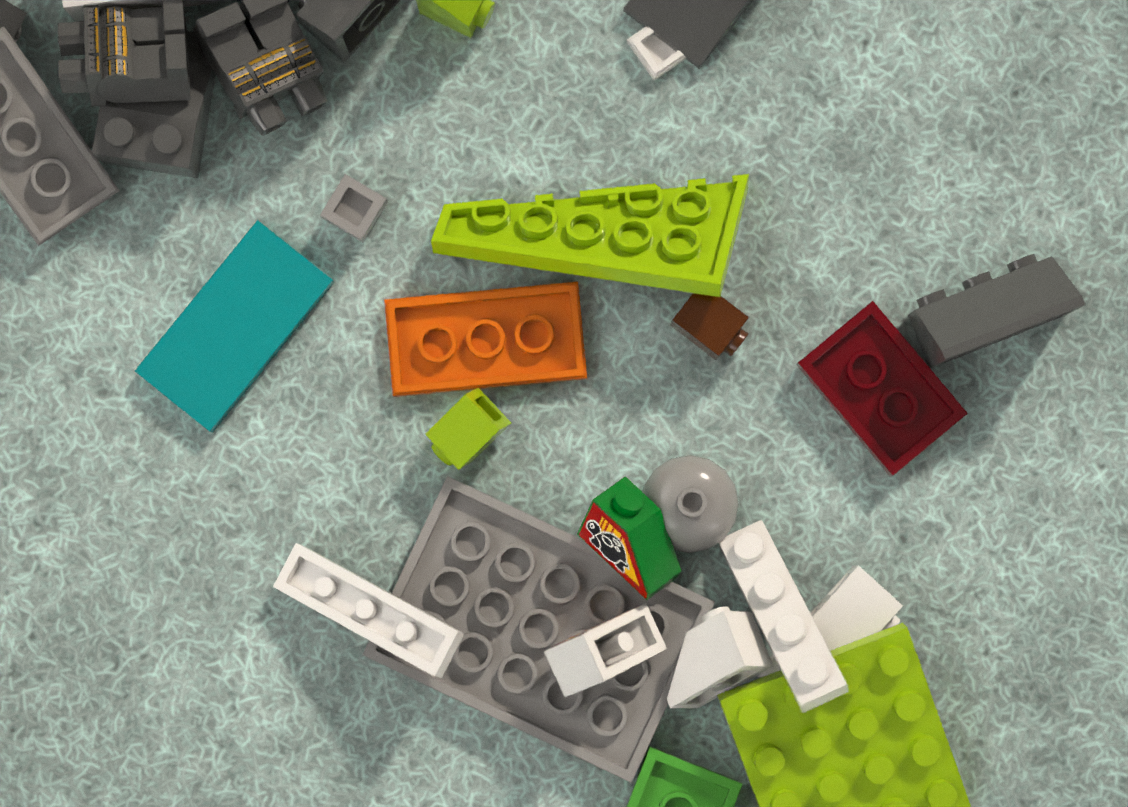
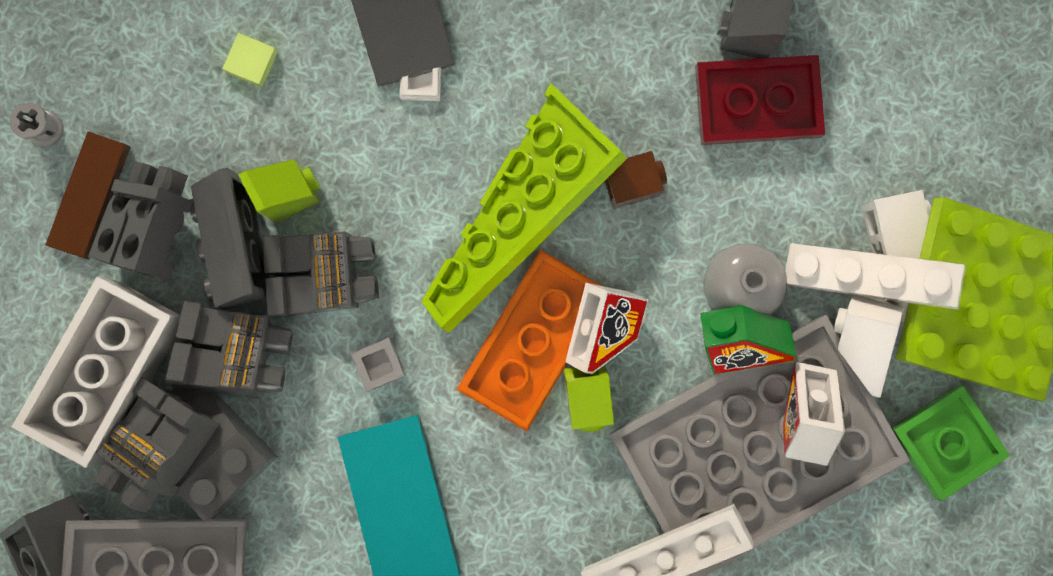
camera: 55 degrees left, 0 degrees up
(414, 95) = (332, 271): none -> dark grey hips
(547, 395) = (604, 326): none -> slope

